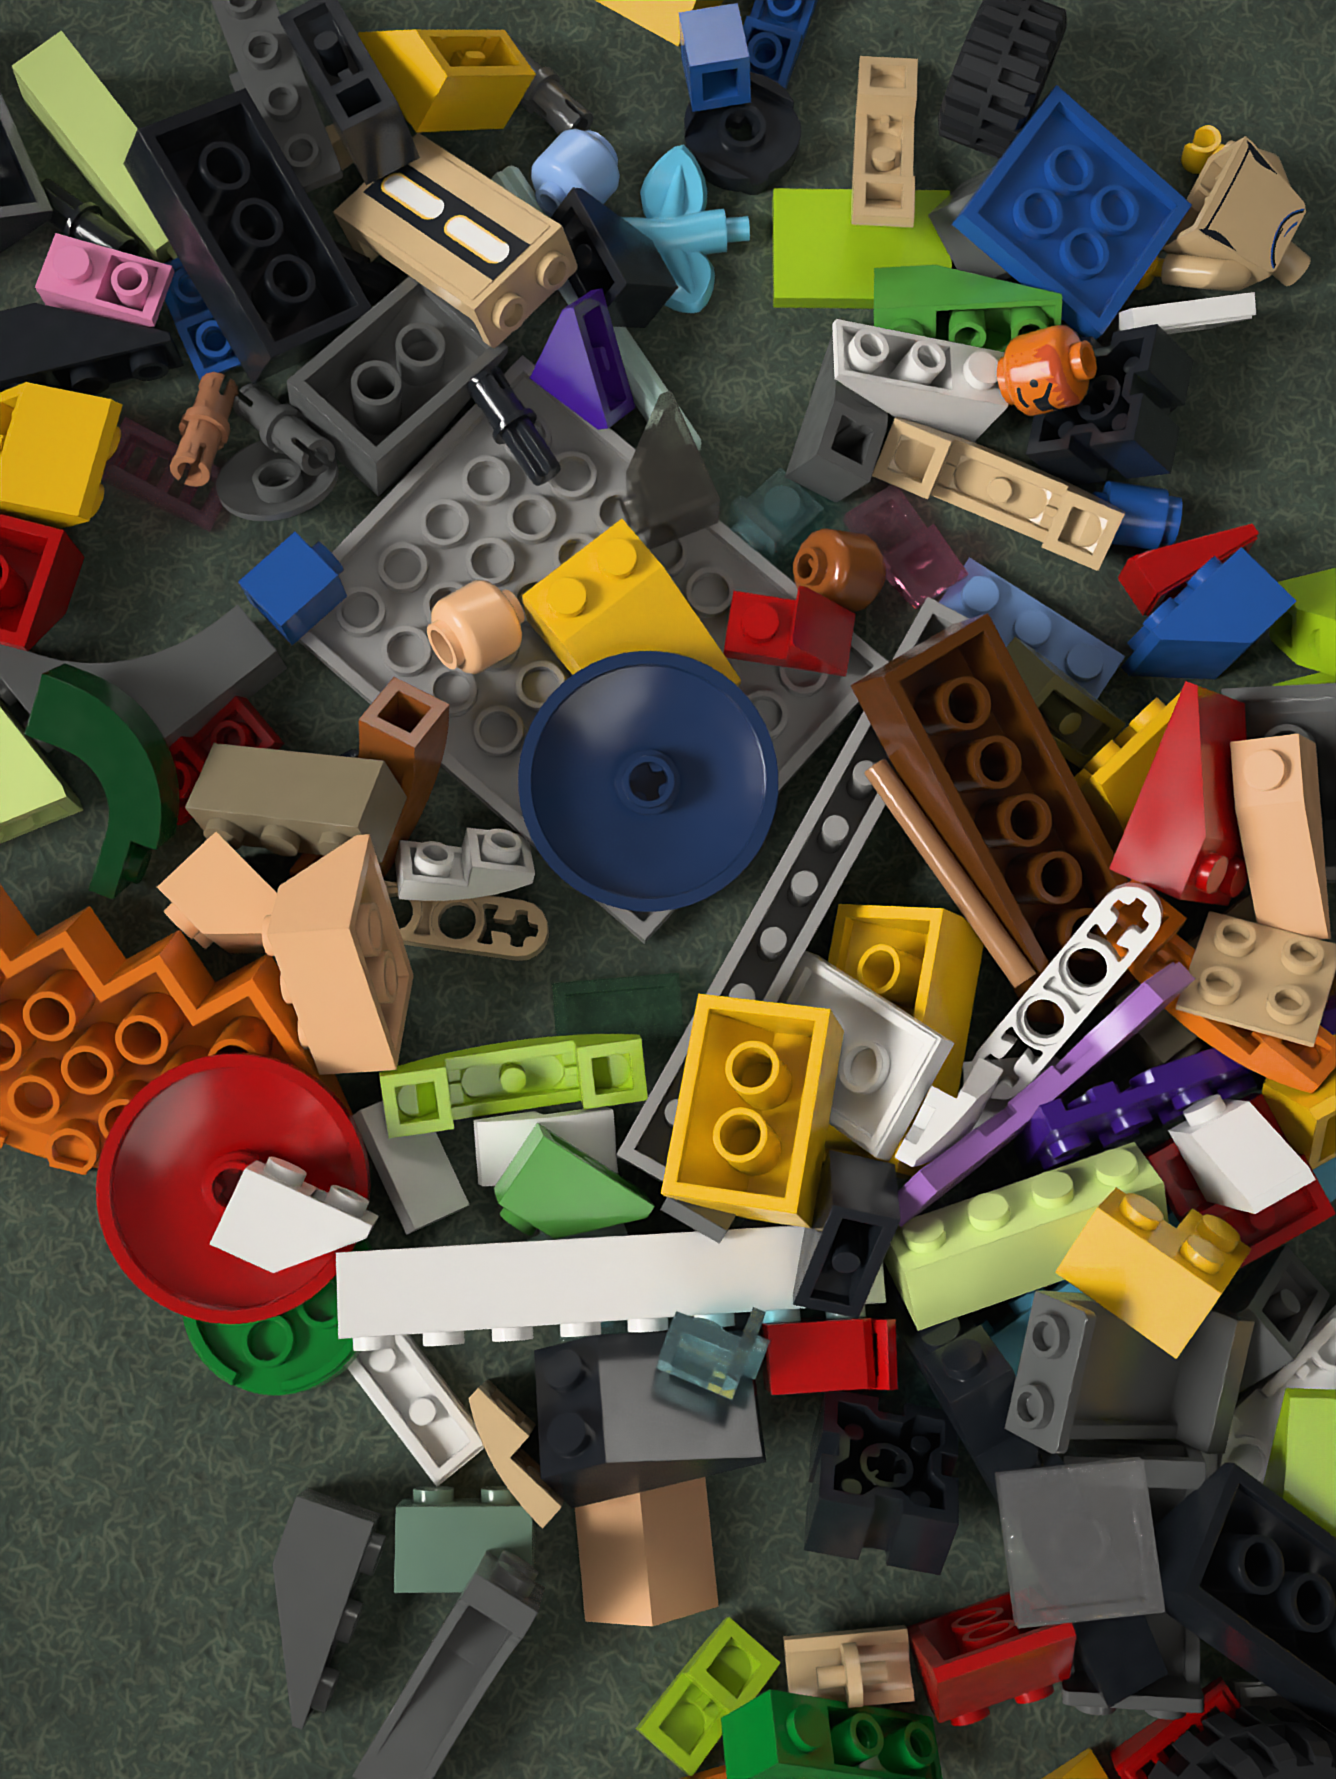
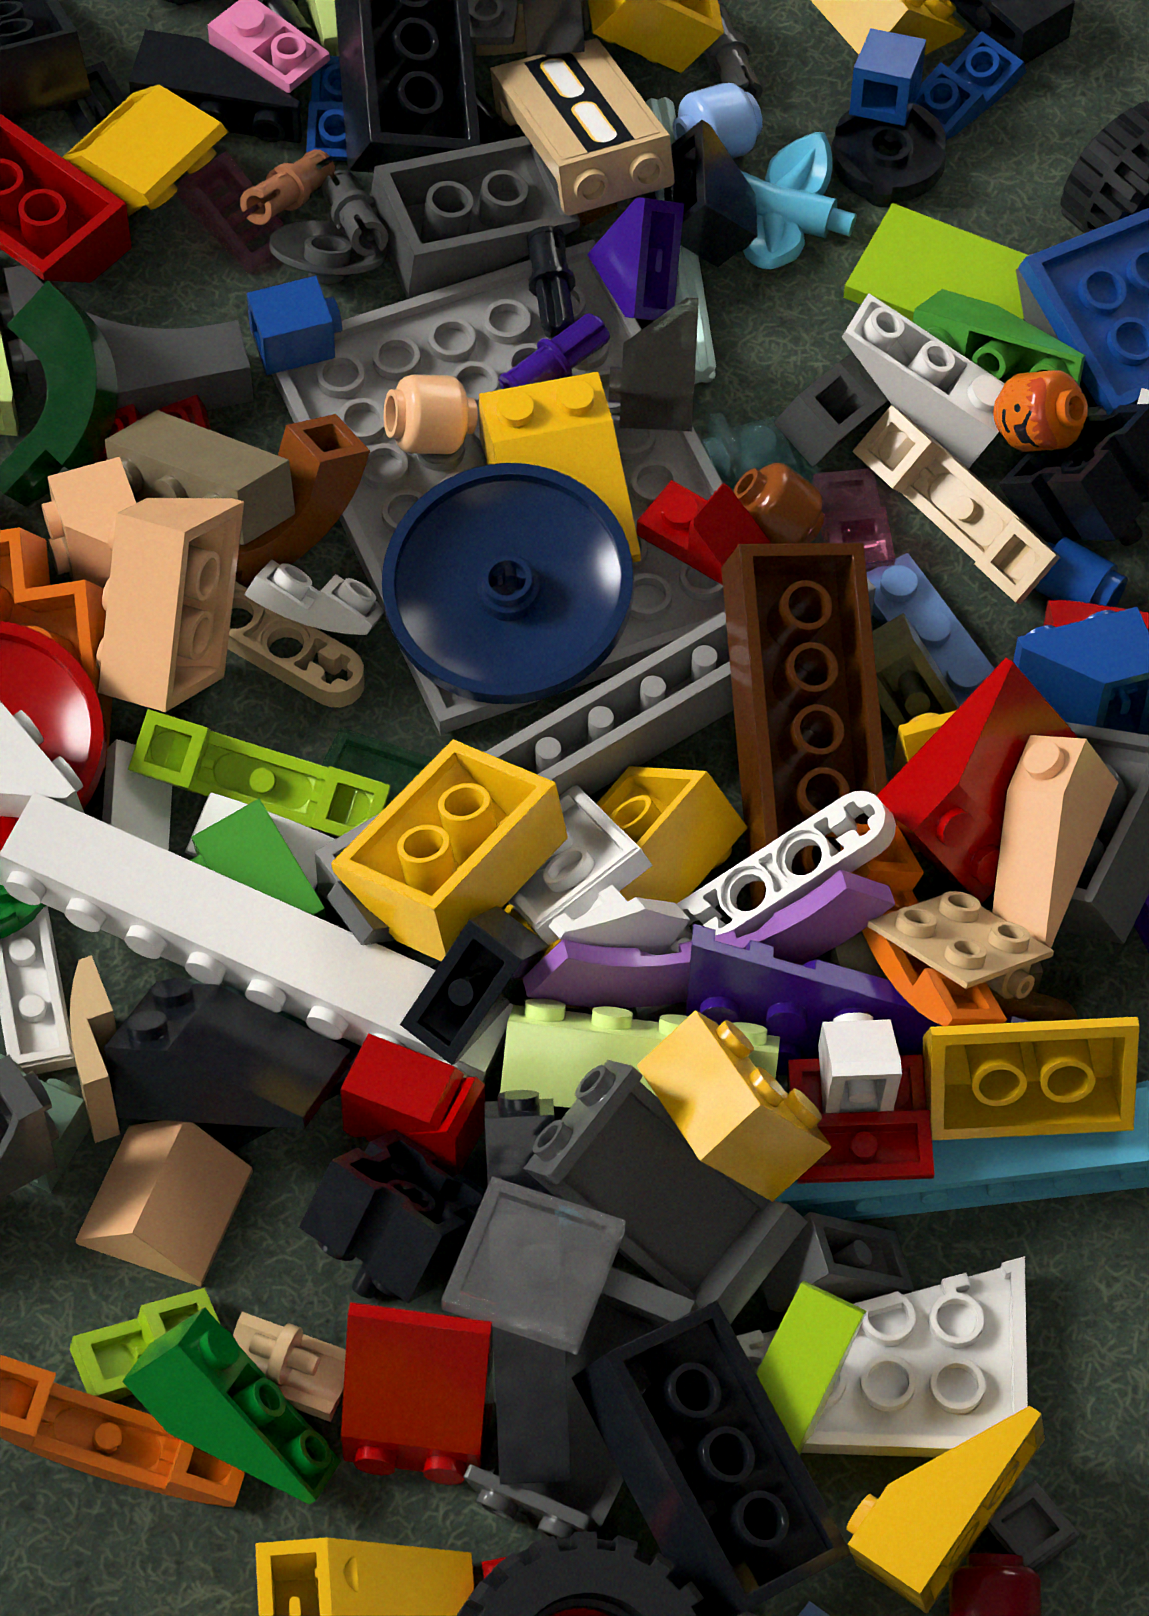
camera: 30 degrees right, 20 degrees down
(559, 509) = (559, 355): none -> dark purple axle
(711, 1356) = (308, 1026): clear light blue bracket -> none
(884, 142) = (1014, 205): tan slope -> none
(950, 873) = (731, 750): medium nougat bar -> none

